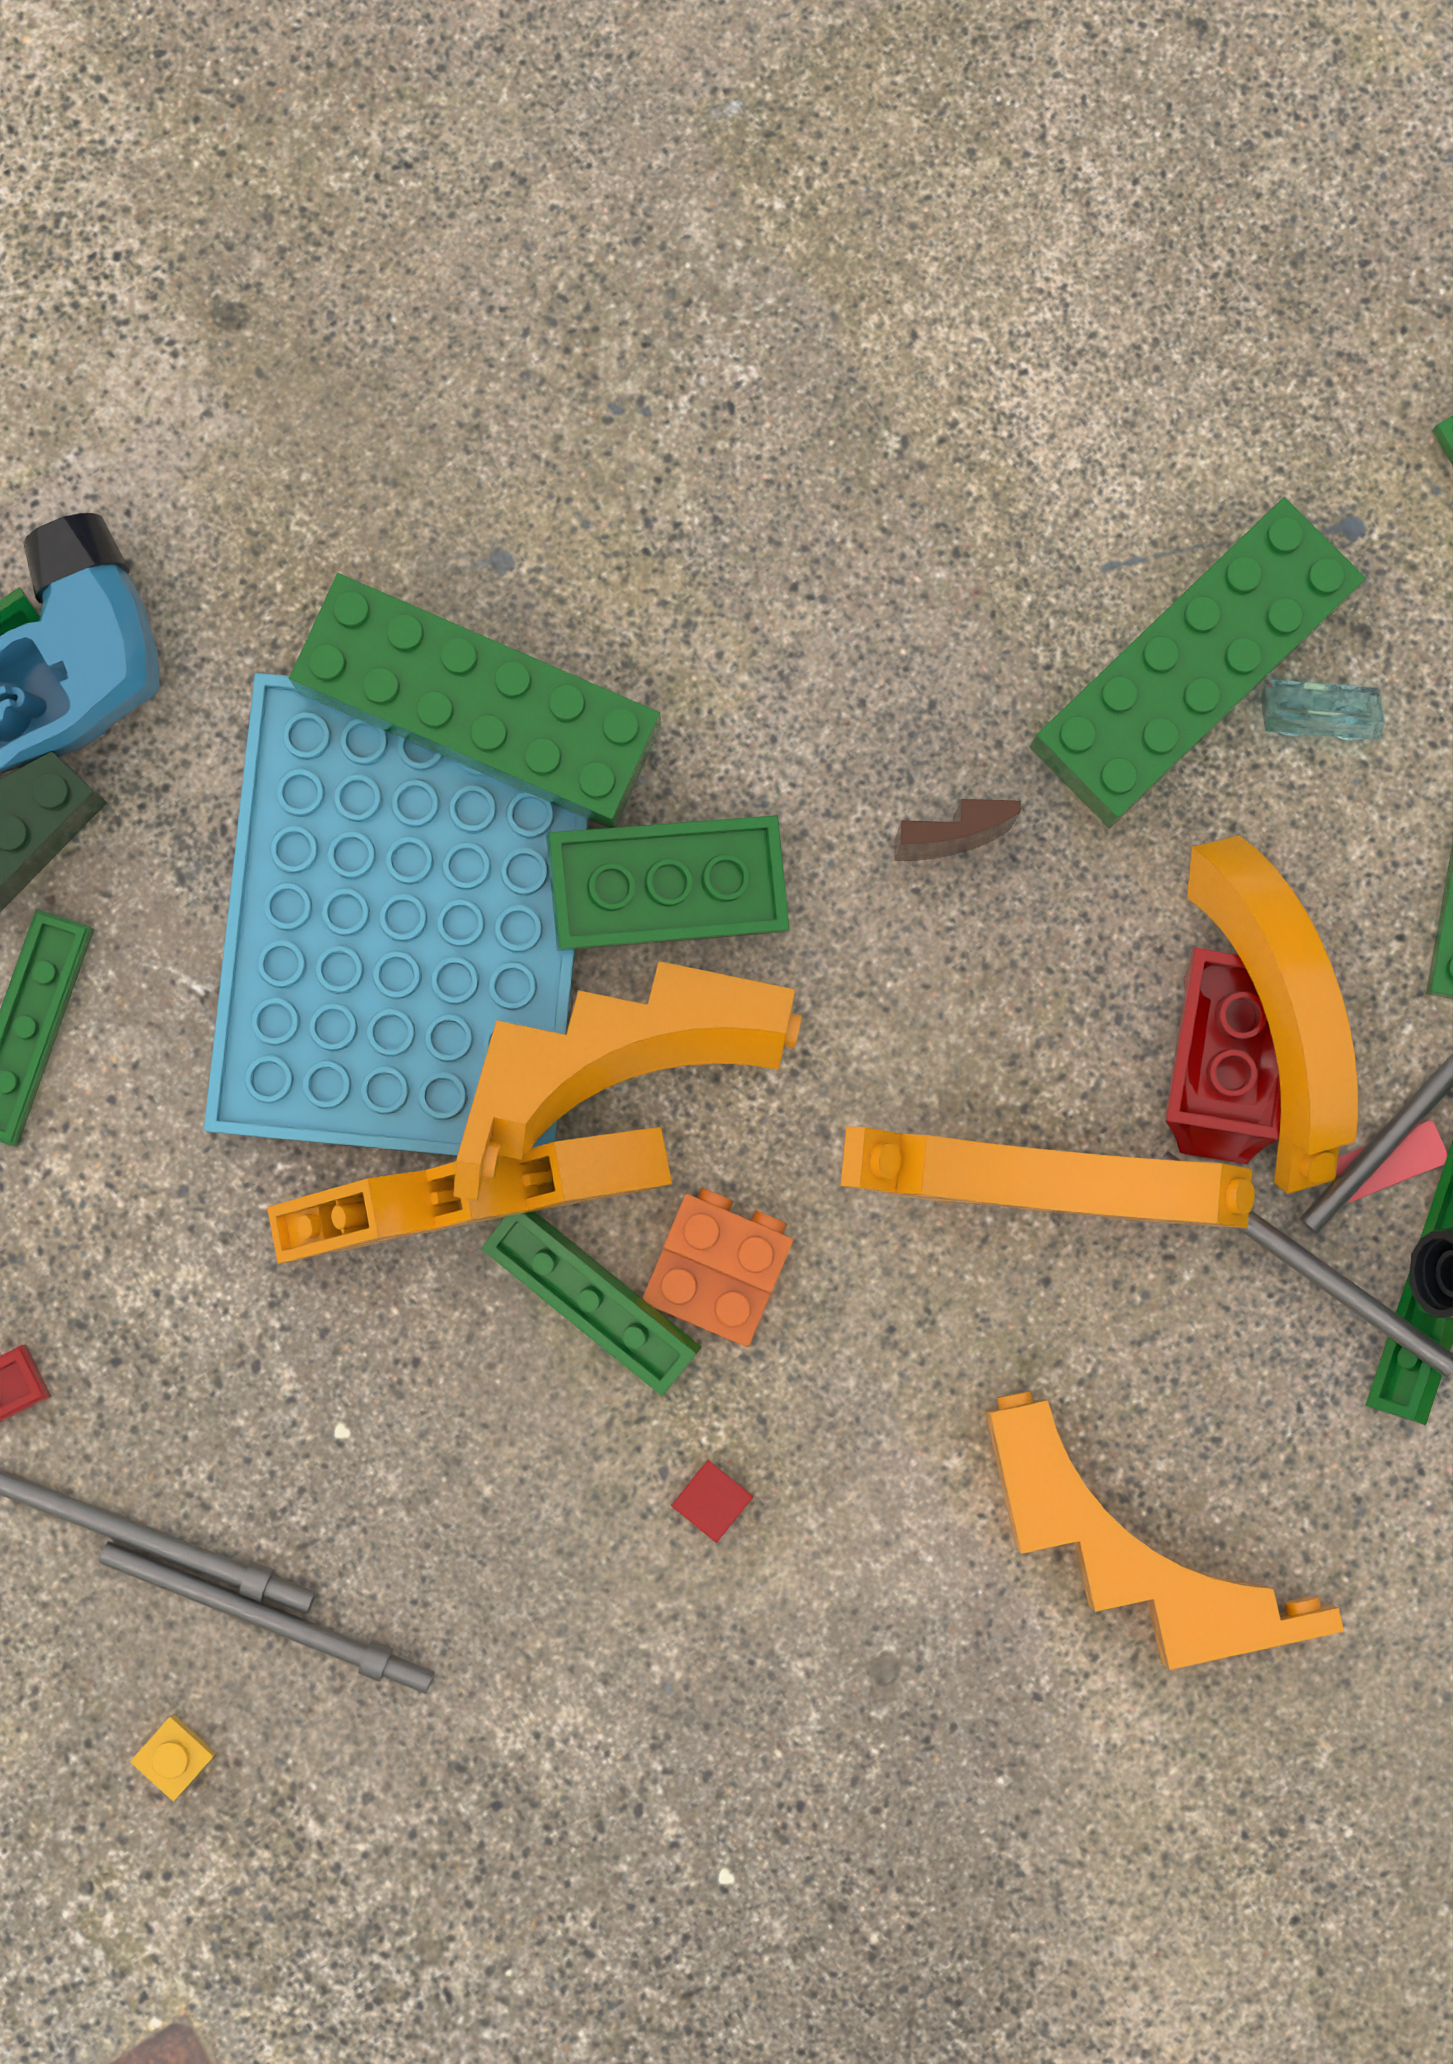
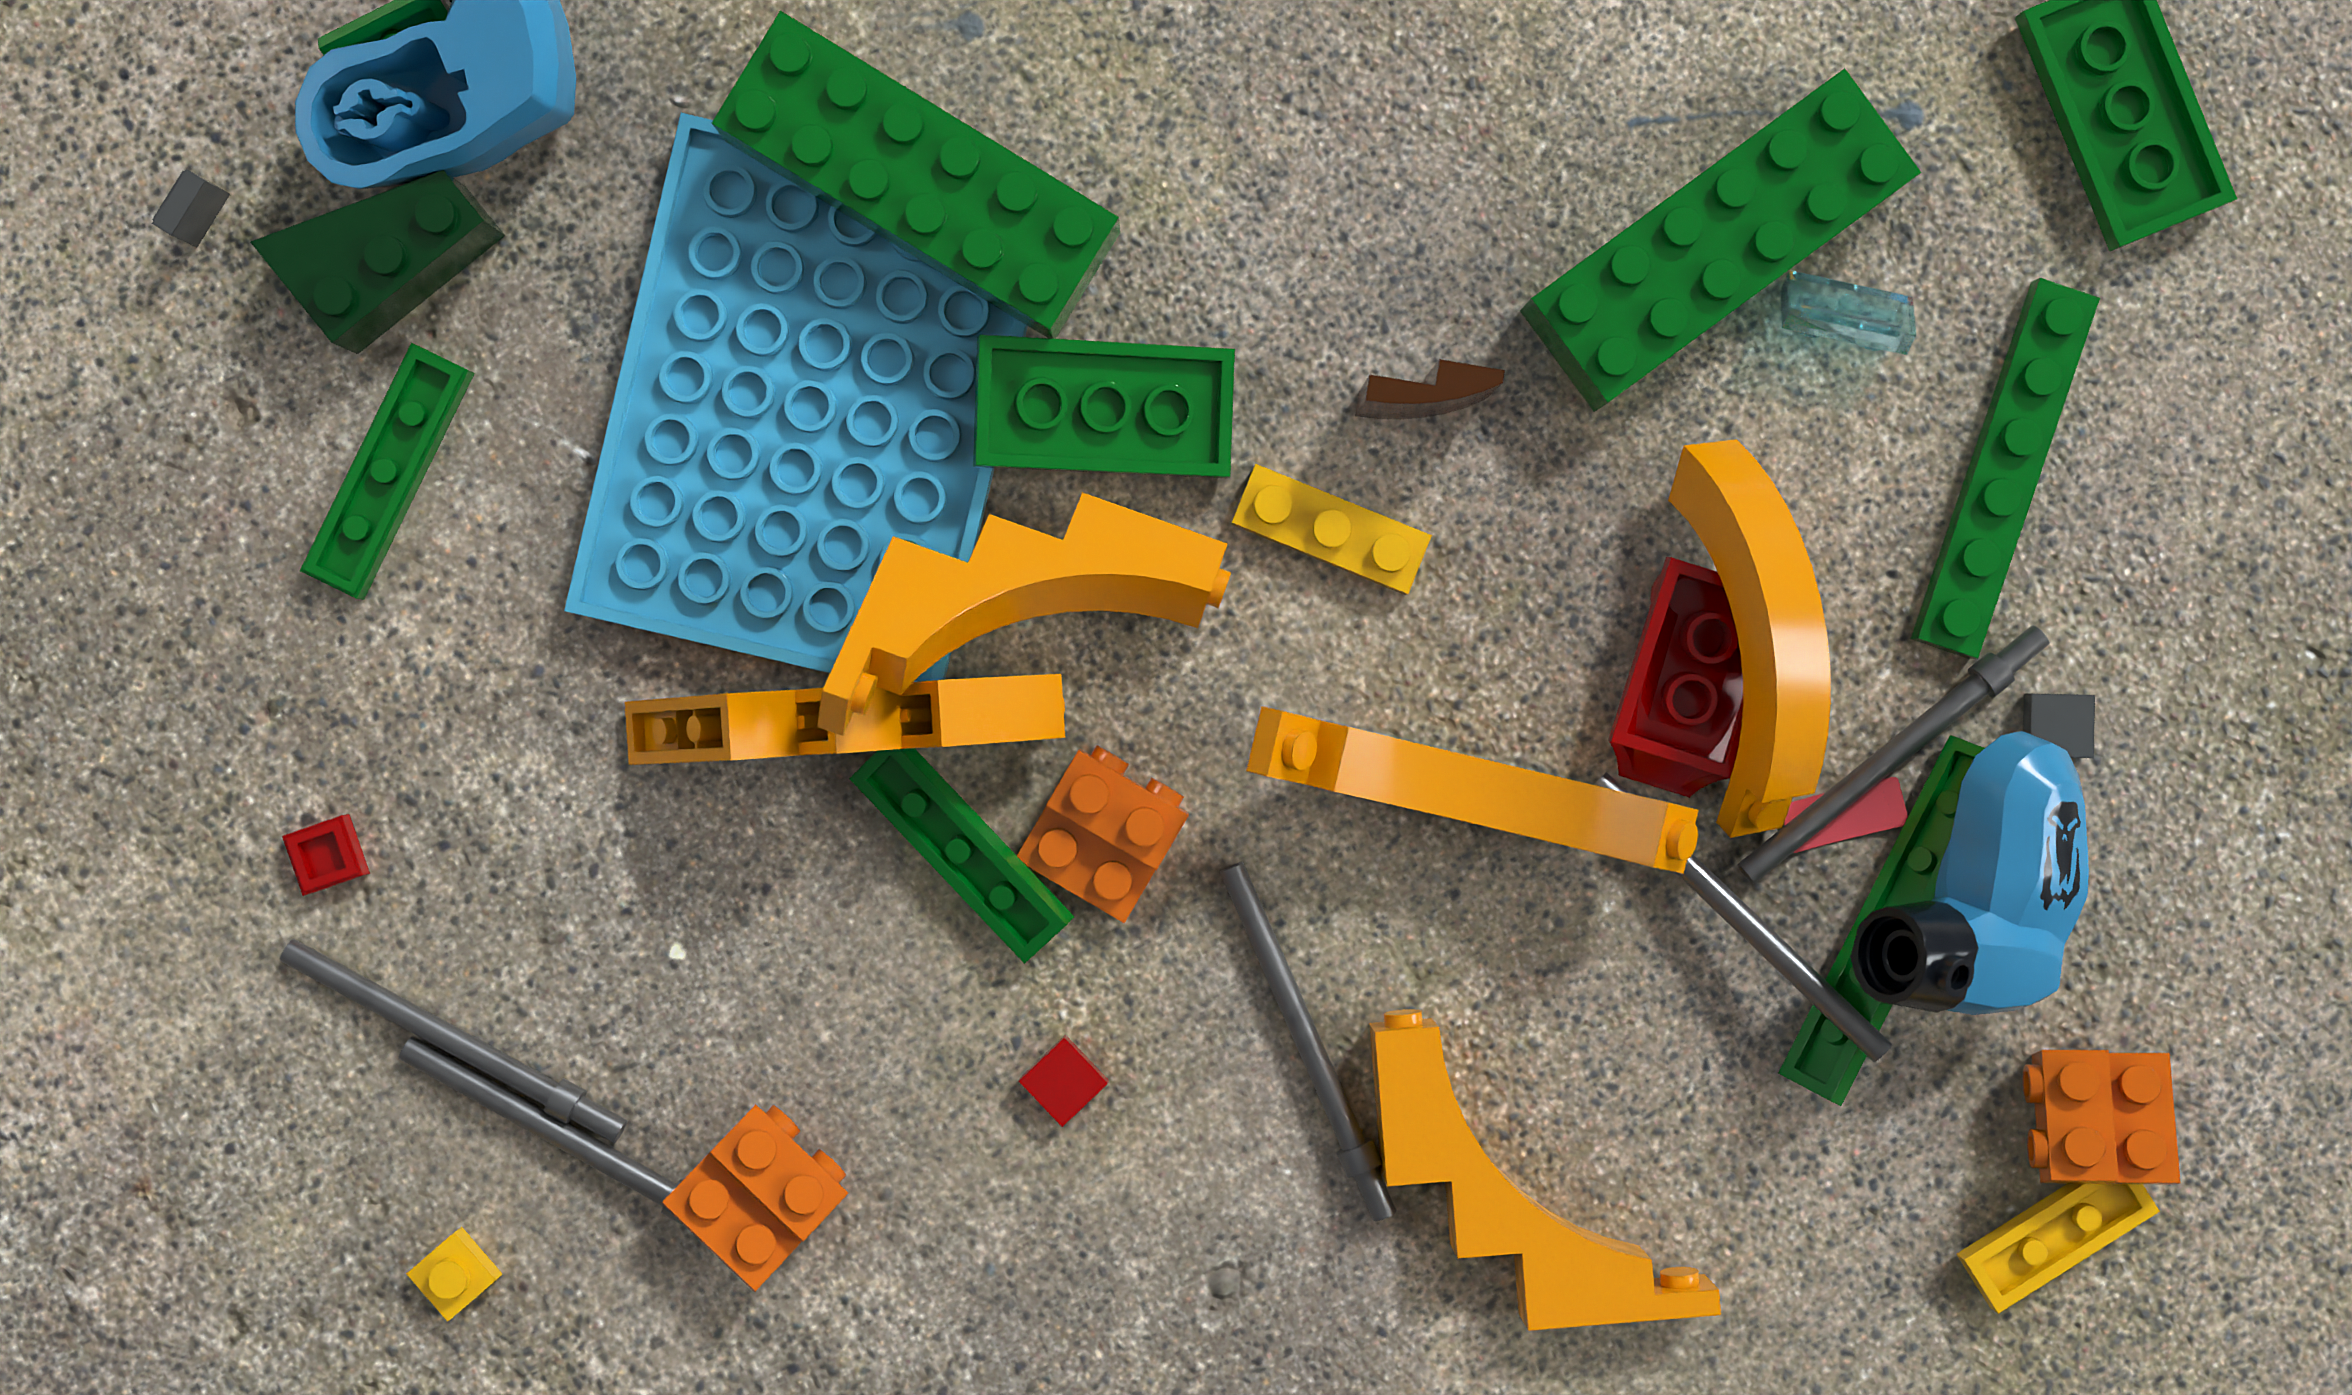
camera: 10 degrees right, 5 degrees up
(445, 1642) = (757, 1195): none -> orange plate
(887, 965) = (1331, 529): none -> yellow plate
(991, 1532) = (1357, 1153): none -> flat silver bar

